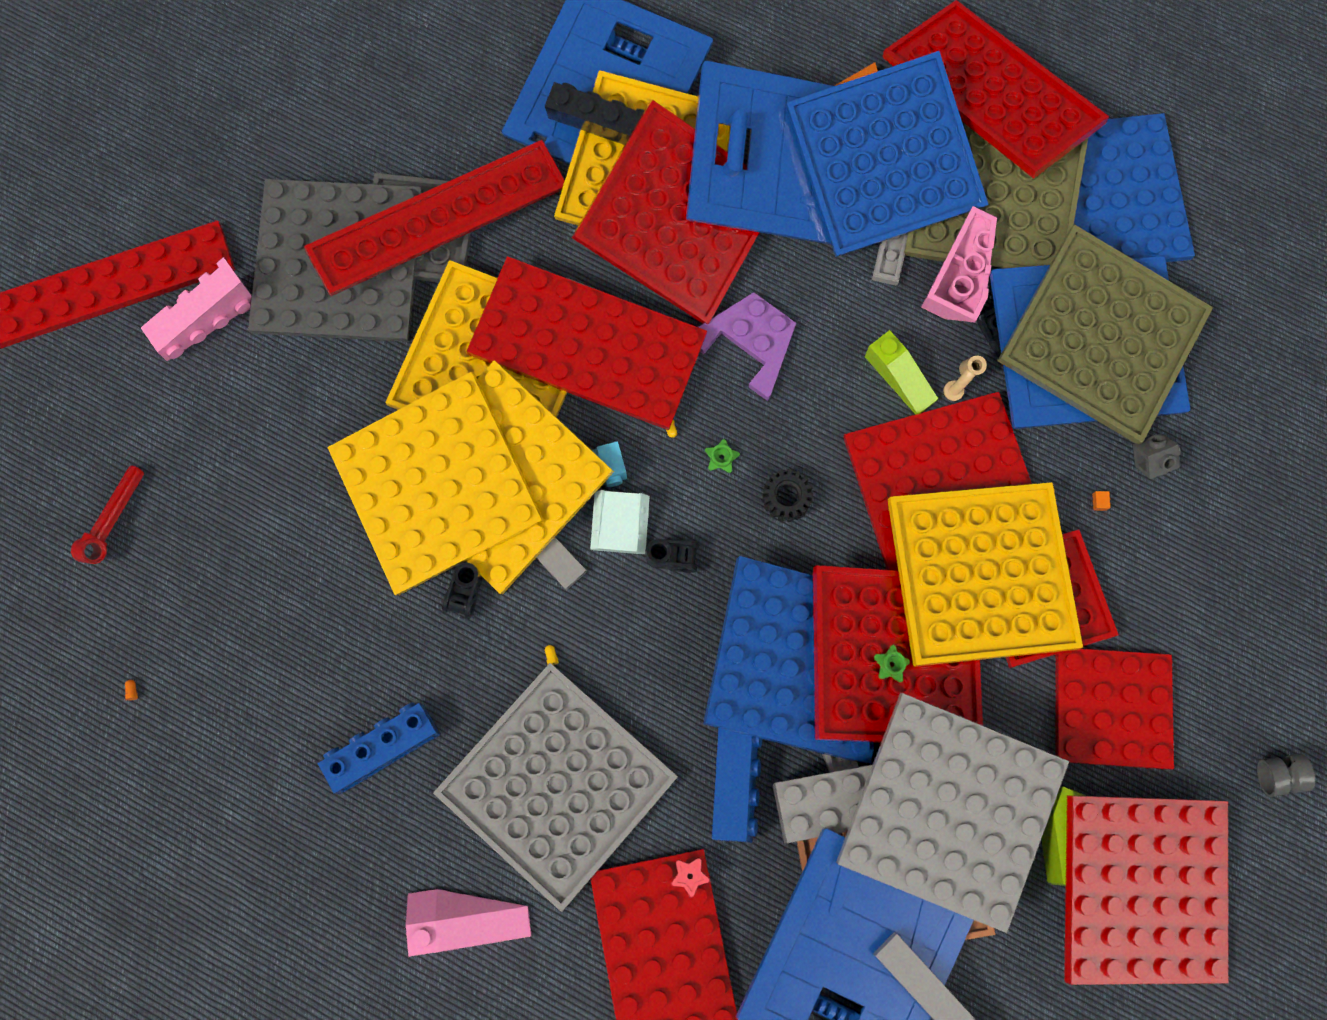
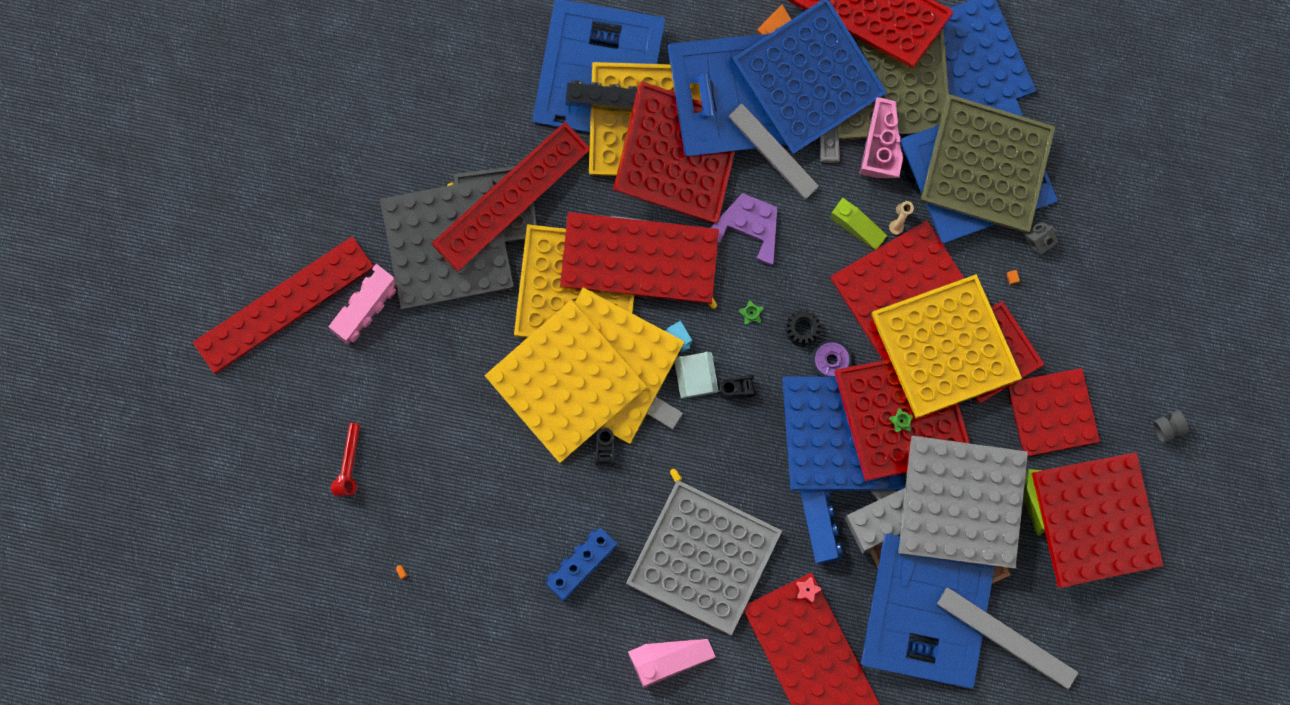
camera: 20 degrees left, 0 degrees up
(809, 245) = (772, 151): none -> light grey tile
(815, 532) = (827, 348): none -> medium lavender wheel

